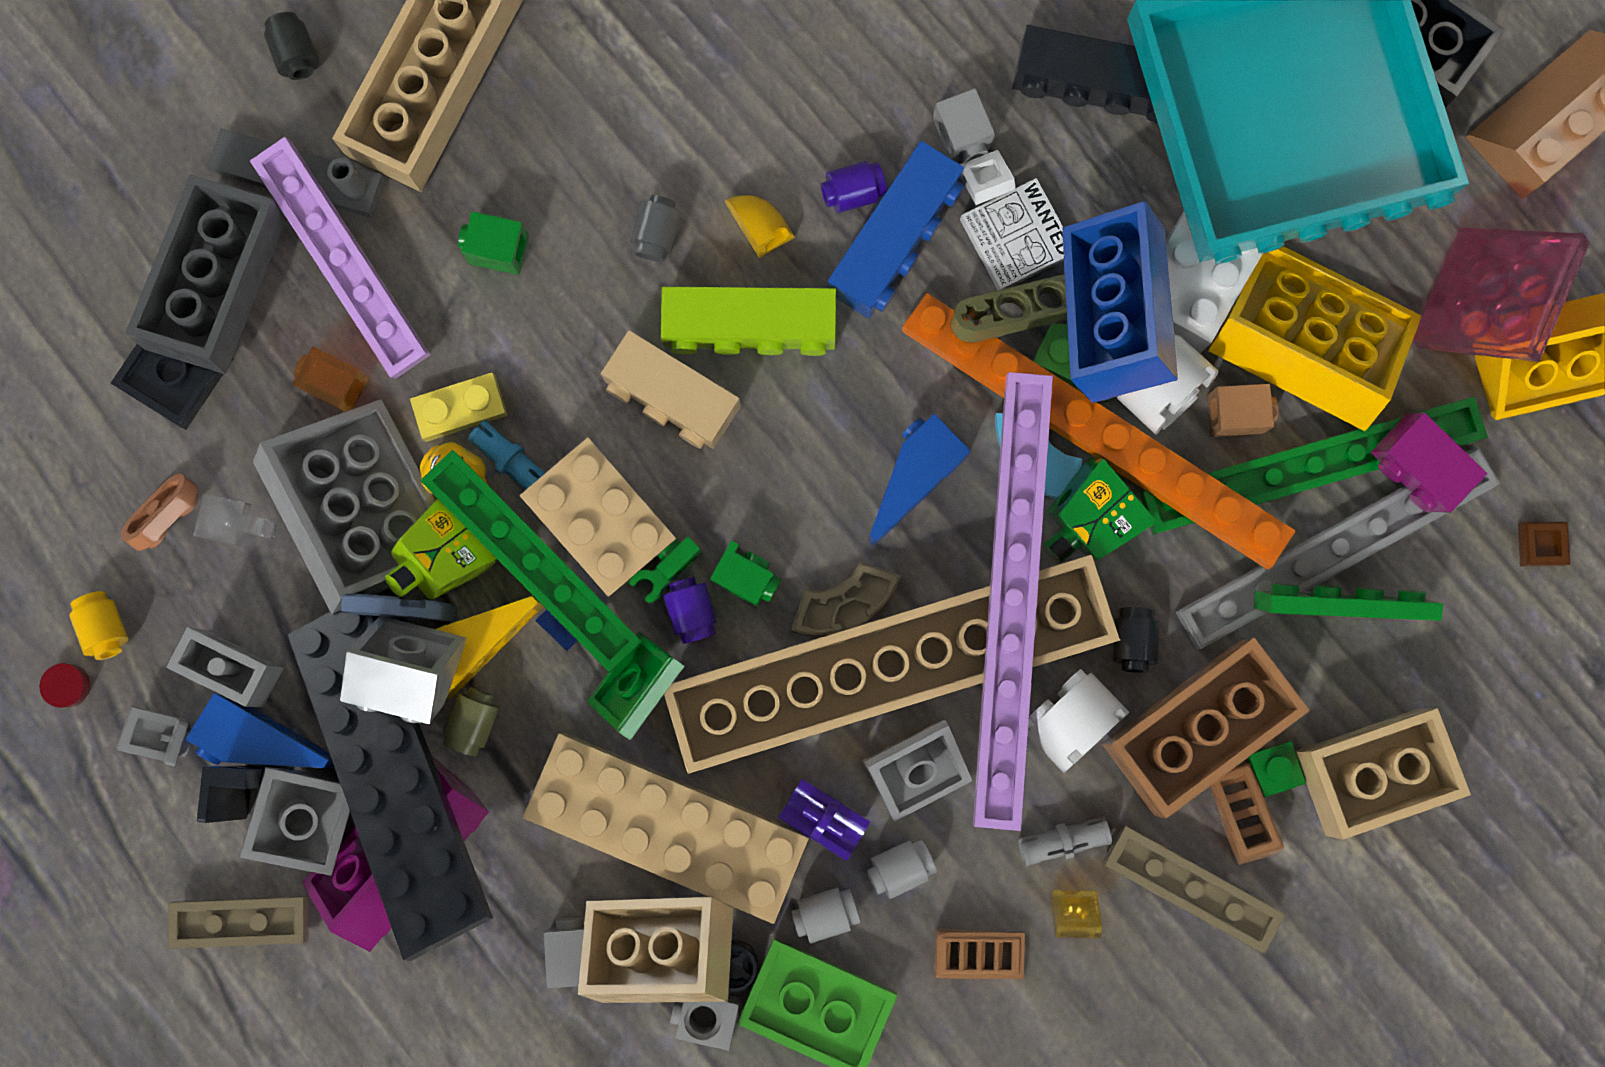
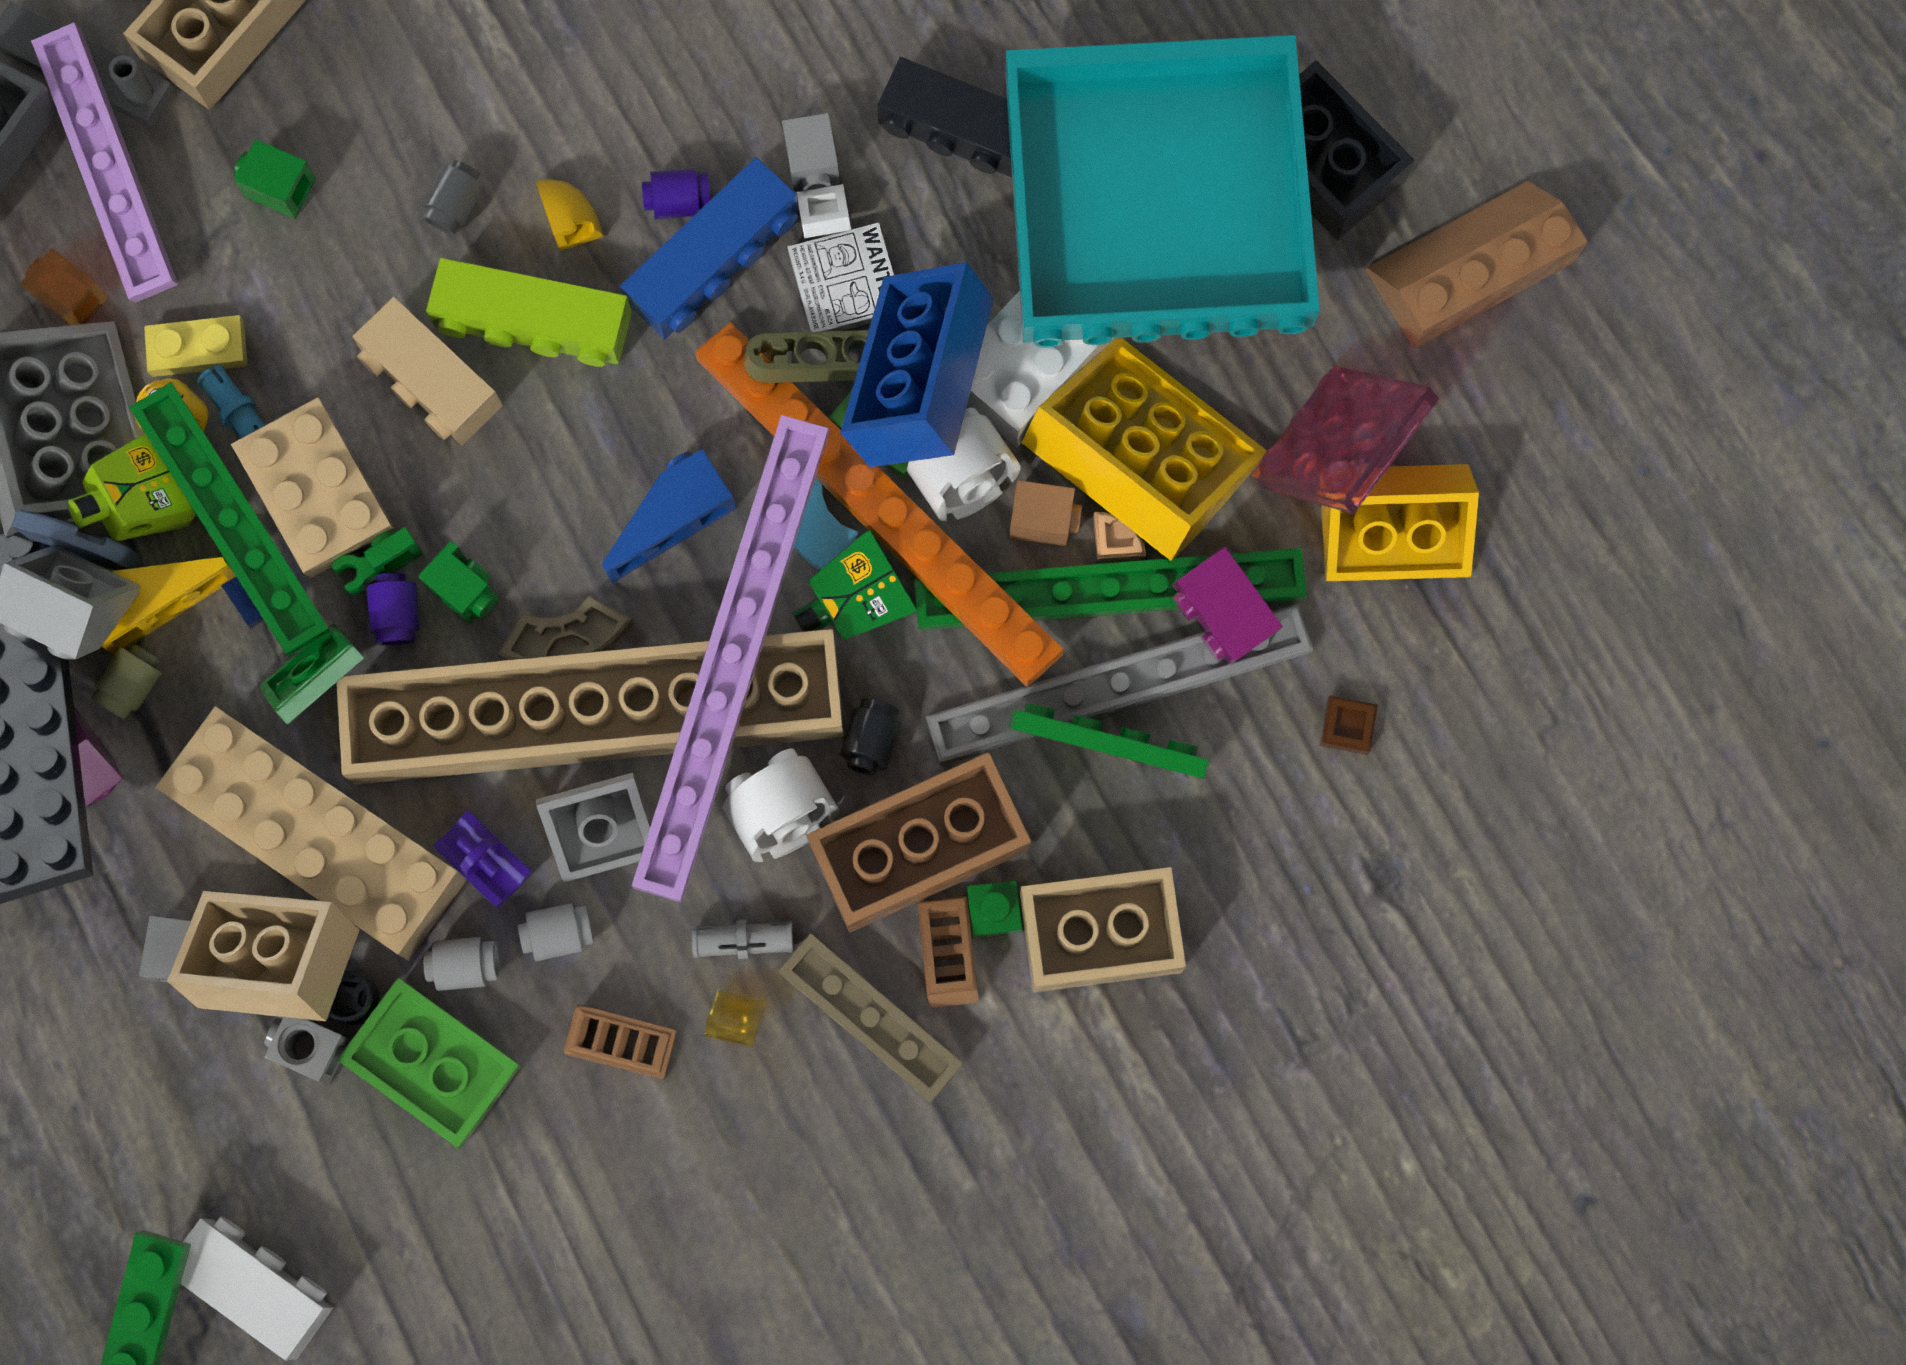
camera: 10 degrees right, 5 degrees down
(1305, 419) = (1116, 540): none -> light nougat tile

